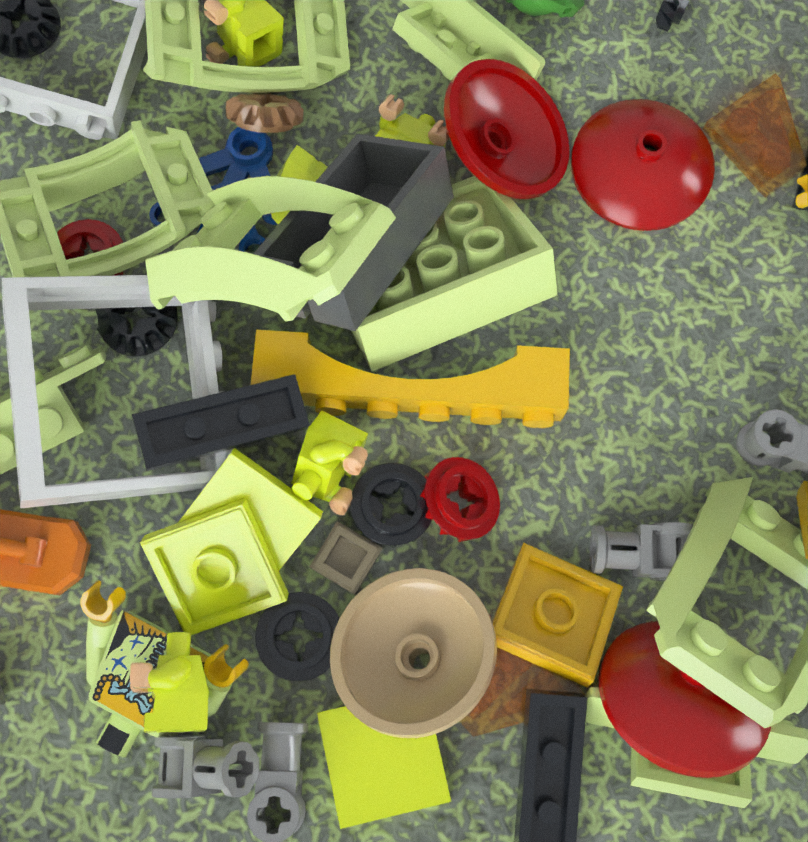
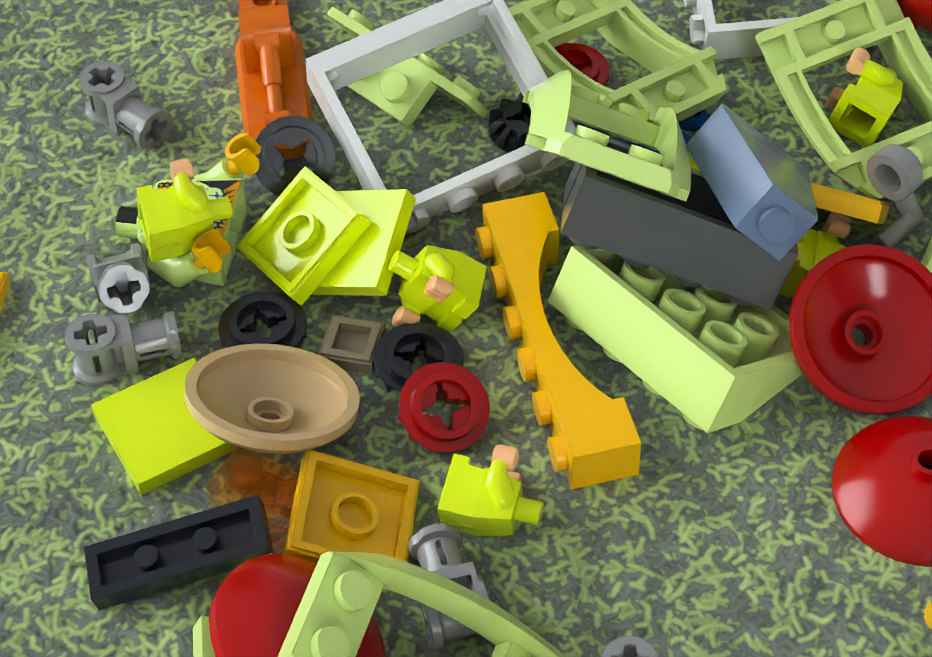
camera: 75 degrees right, 25 degrees down
(119, 555) = (290, 132): none -> black gear
(220, 422) = (436, 181): black plate -> none
(264, 112) = (785, 134): medium nougat gear -> none
(352, 40) = (896, 175): none -> light grey plate
(356, 101) = (850, 204): none -> yellow tile
(381, 143) = (754, 181): none -> sand blue slope
(573, 492) = (488, 498): none -> neon yellow piece

